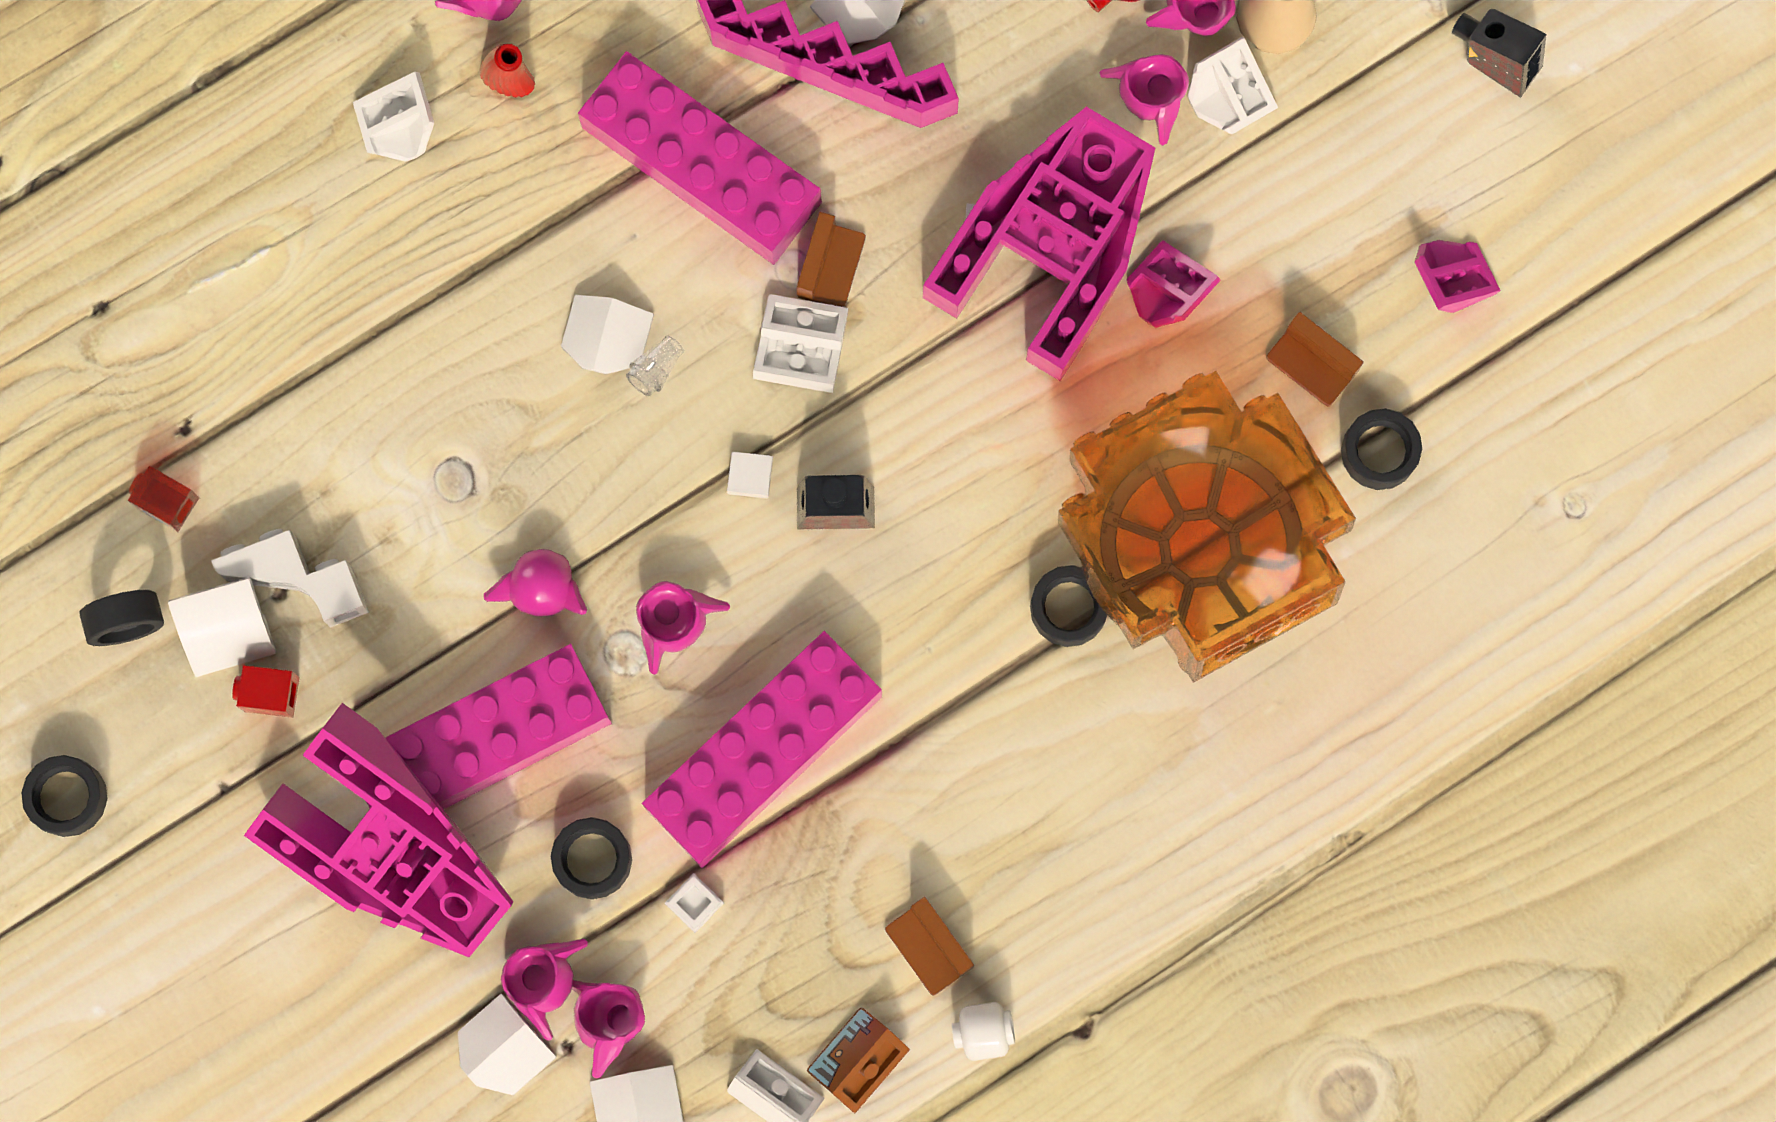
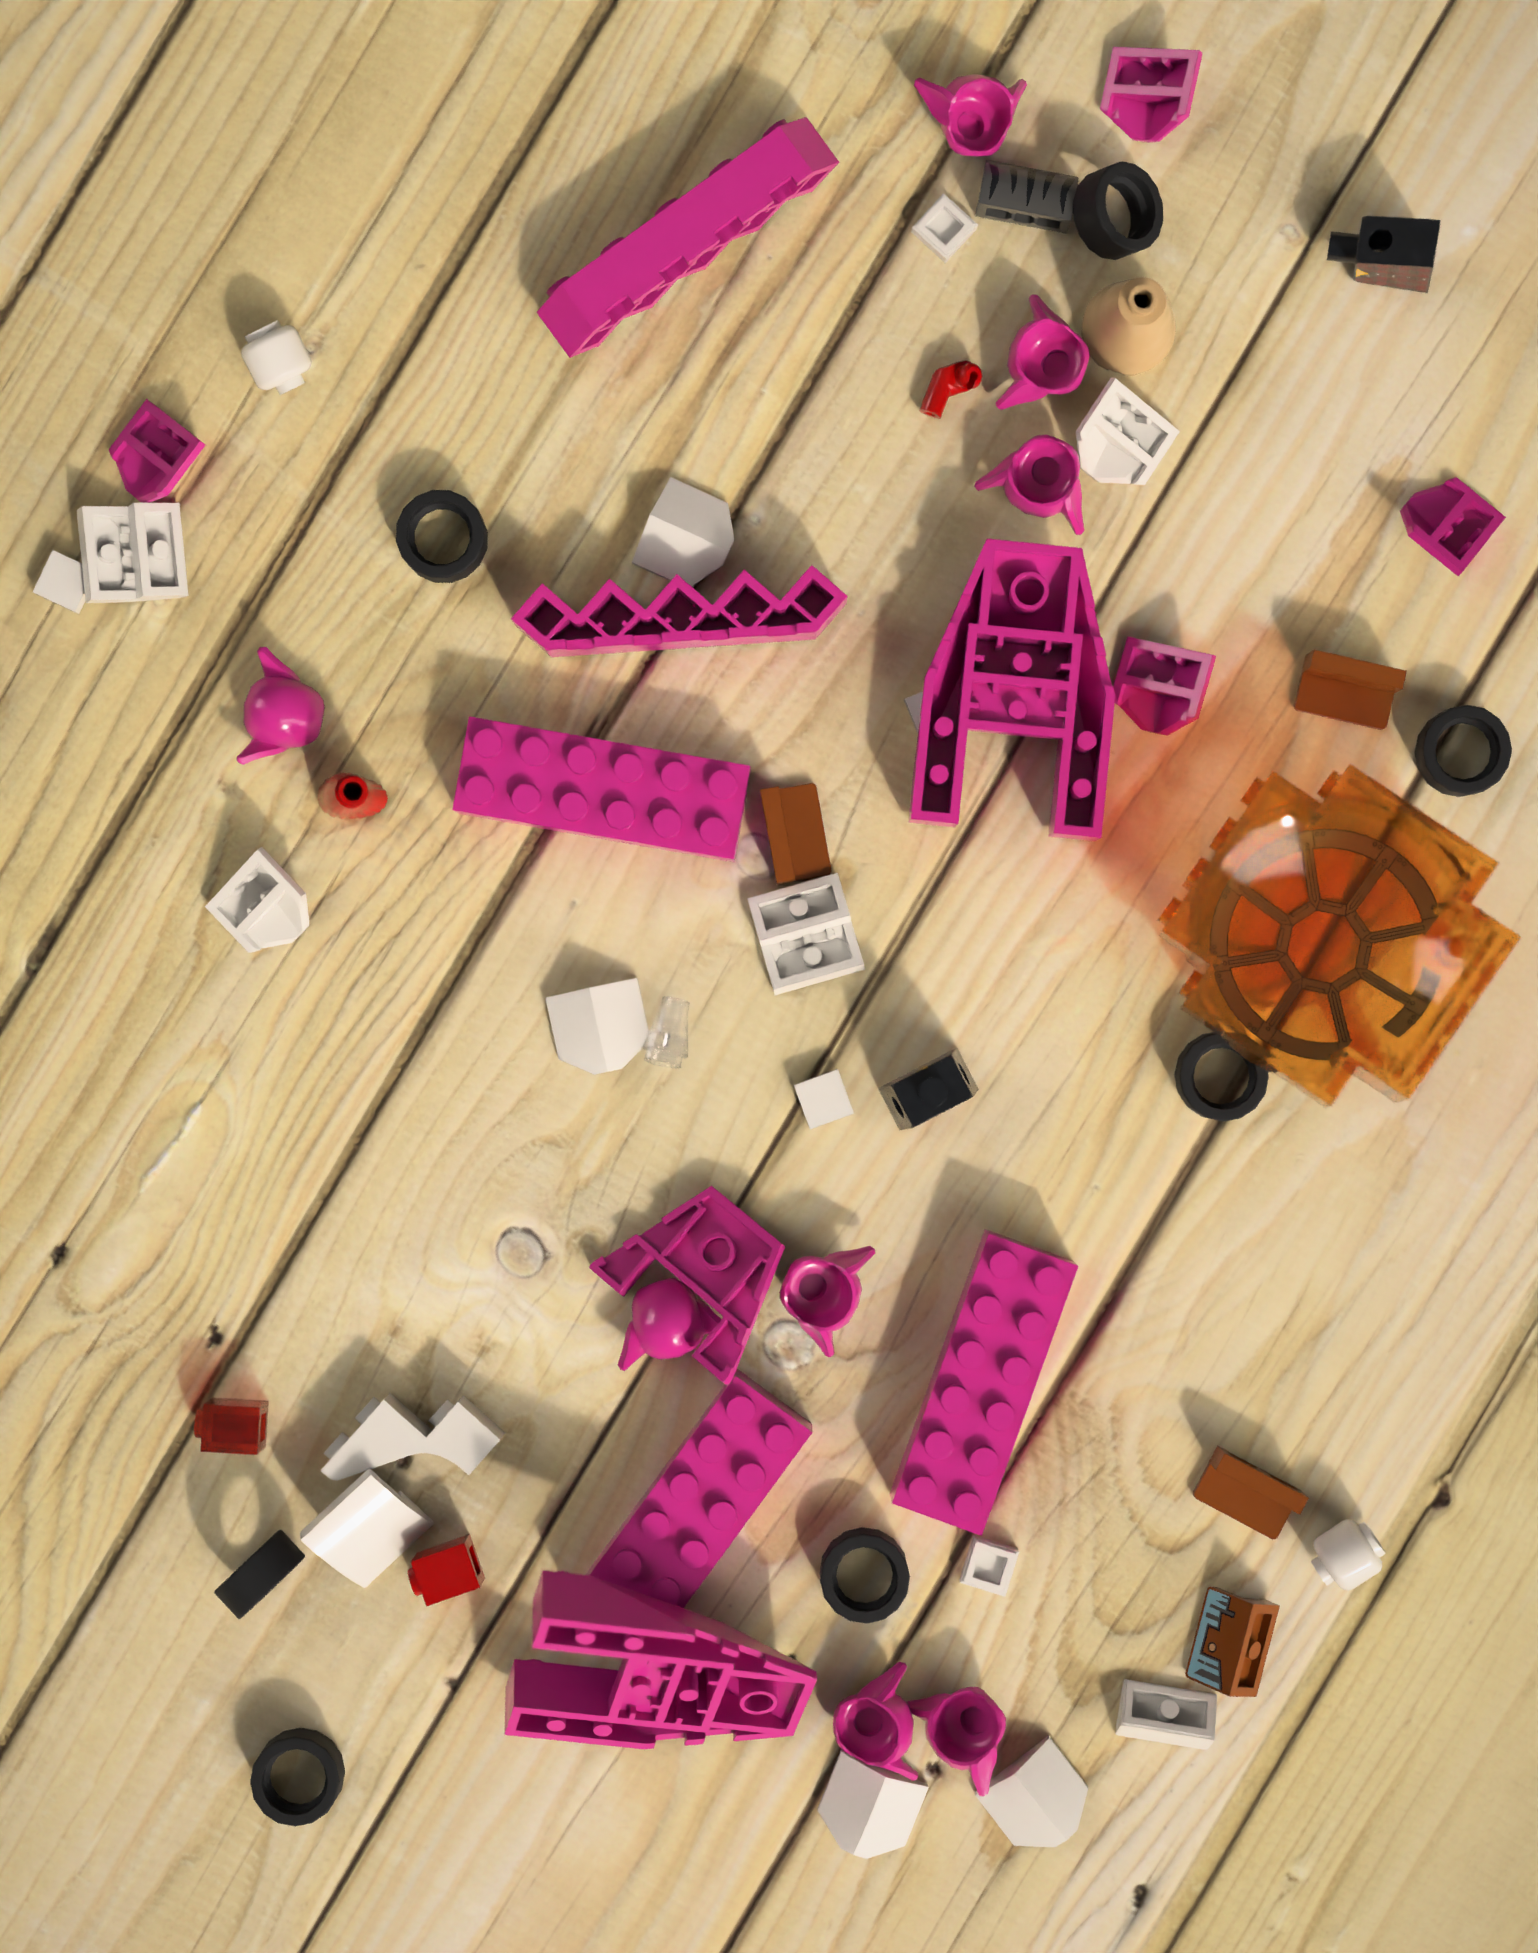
camera: 25 degrees left, 10 degrees up
(605, 552) = (718, 1257): none -> dark pink wing

